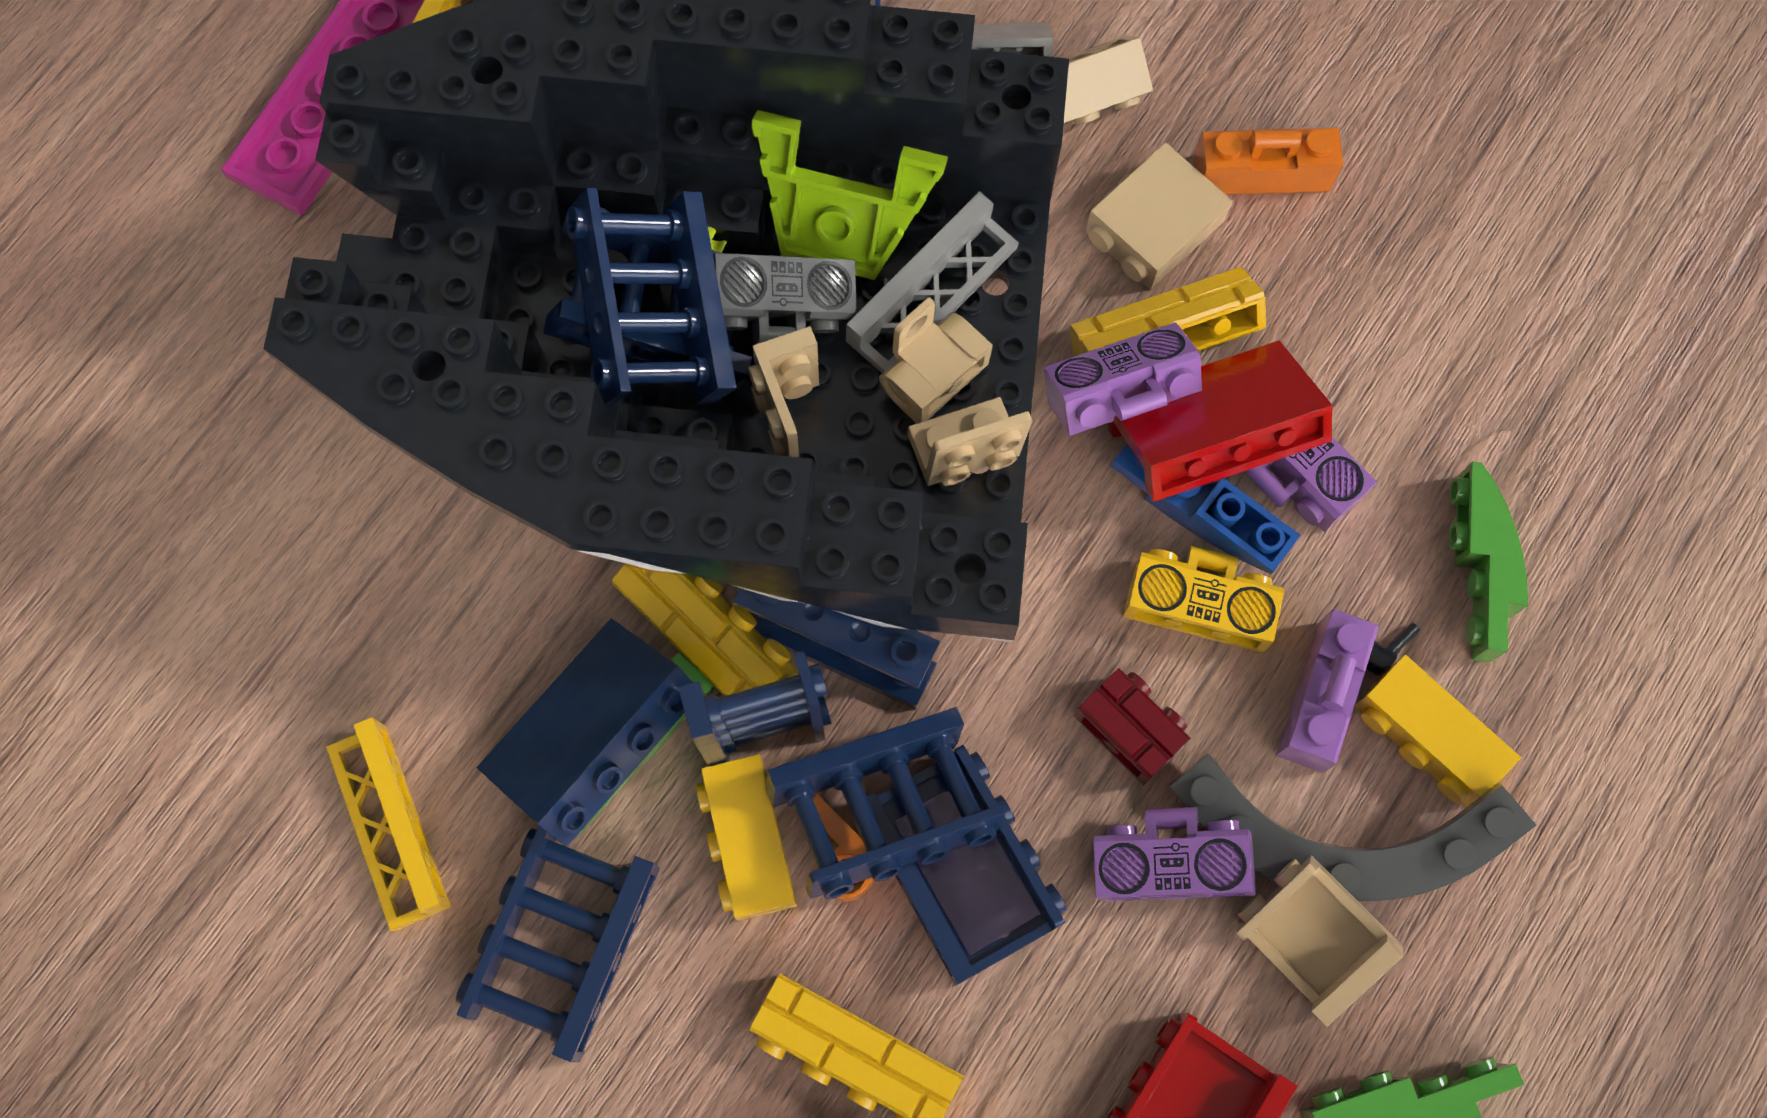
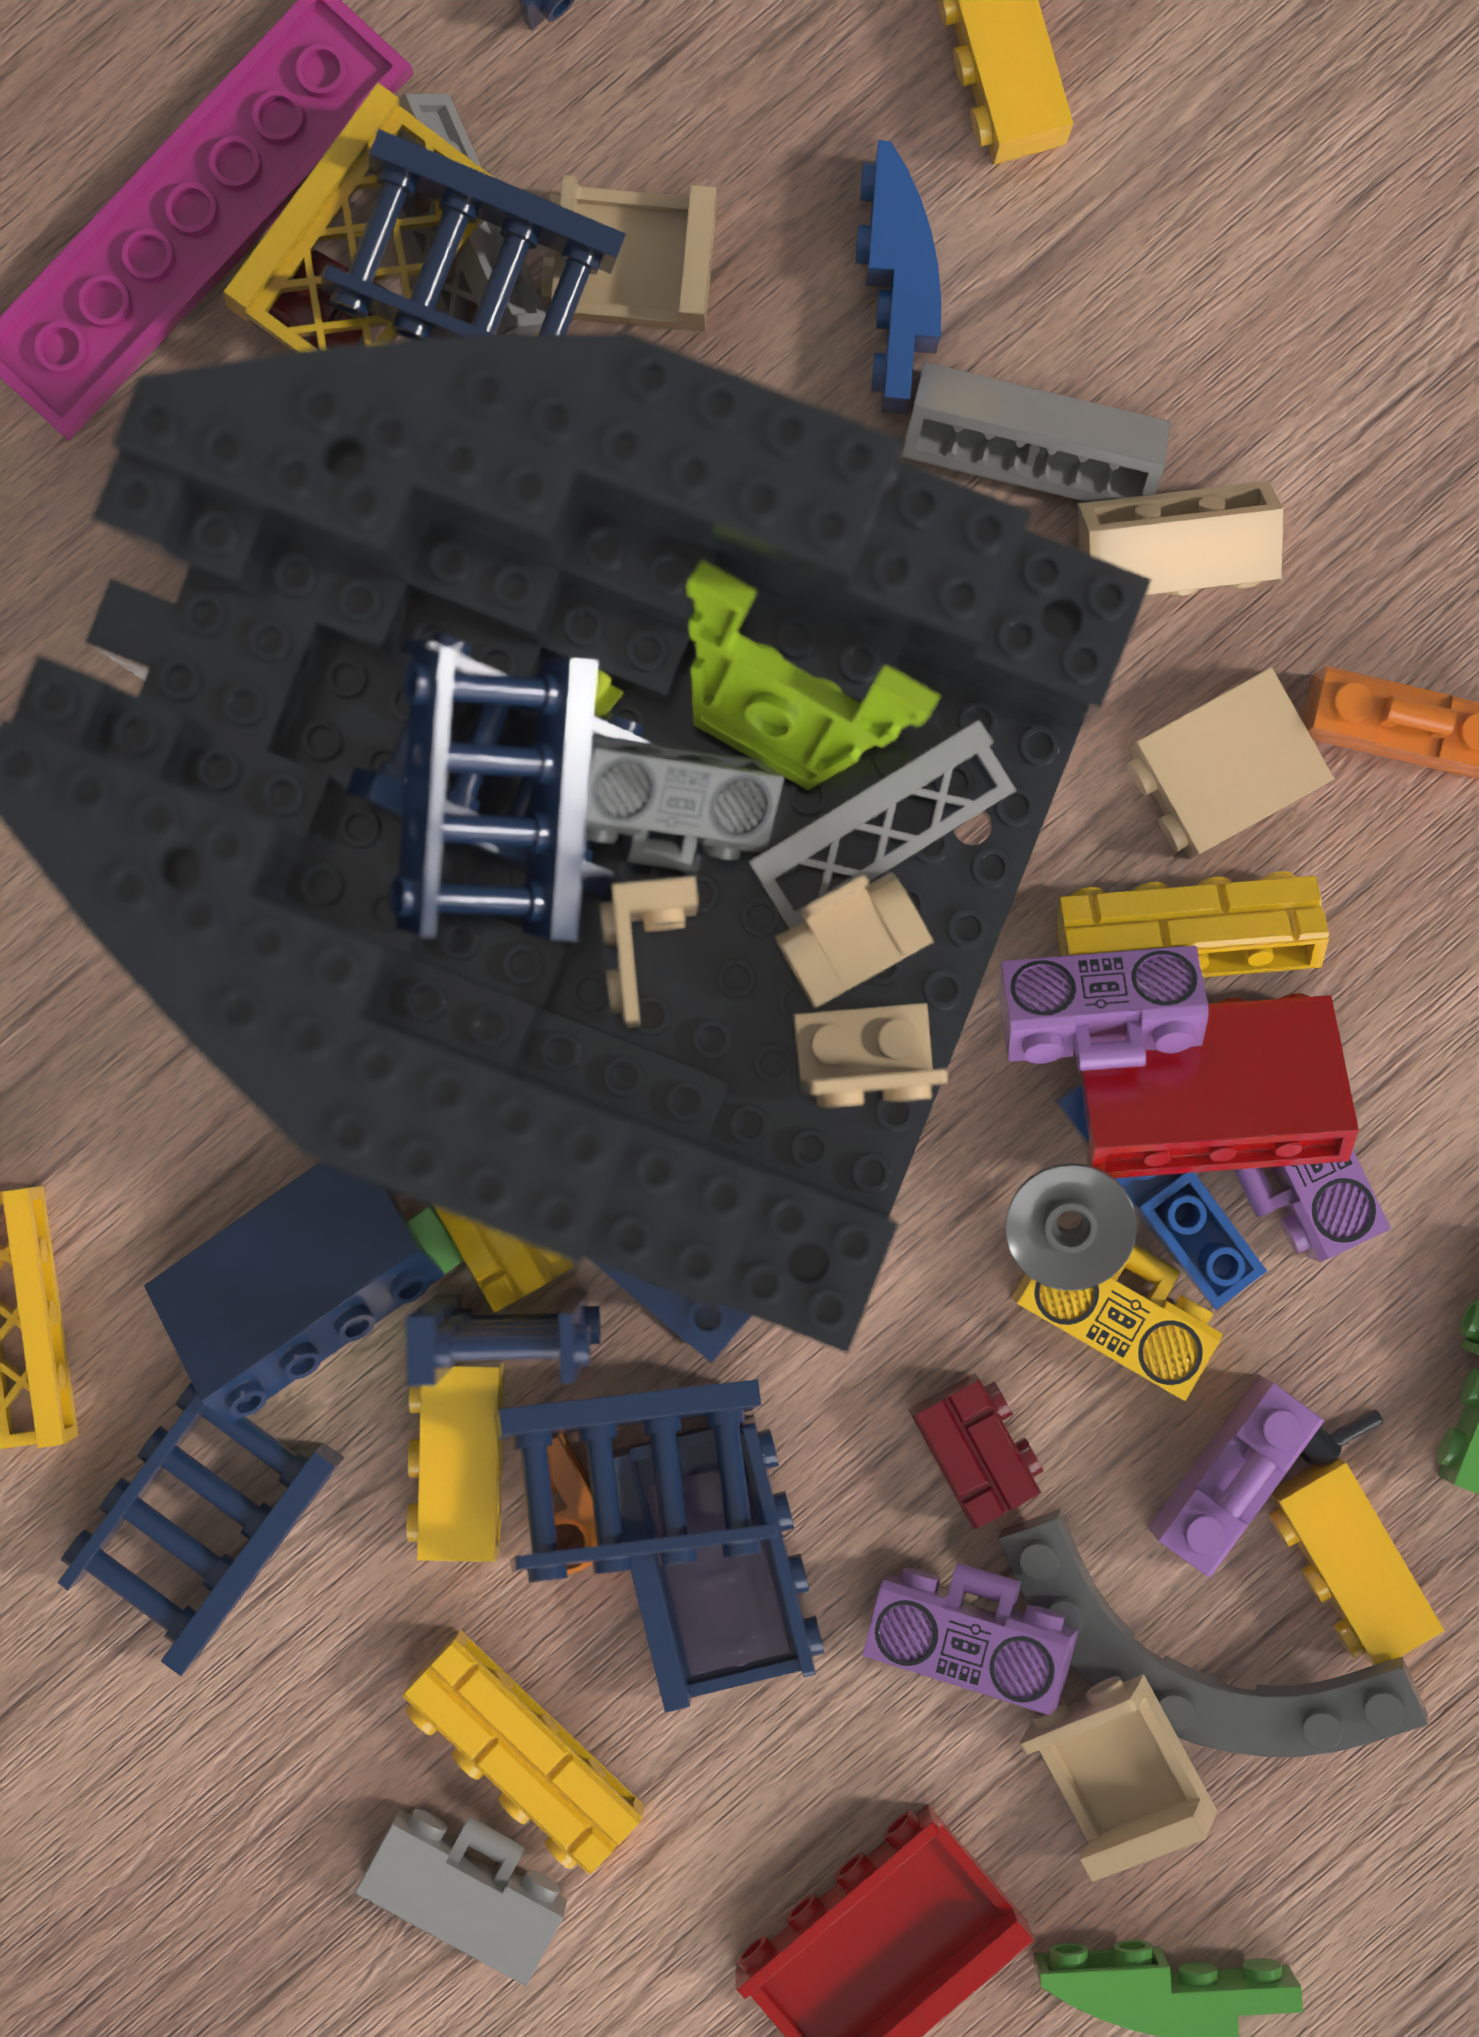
camera: 15 degrees right, 15 degrees up
(1175, 531) = (1074, 1256): none -> dark grey dish

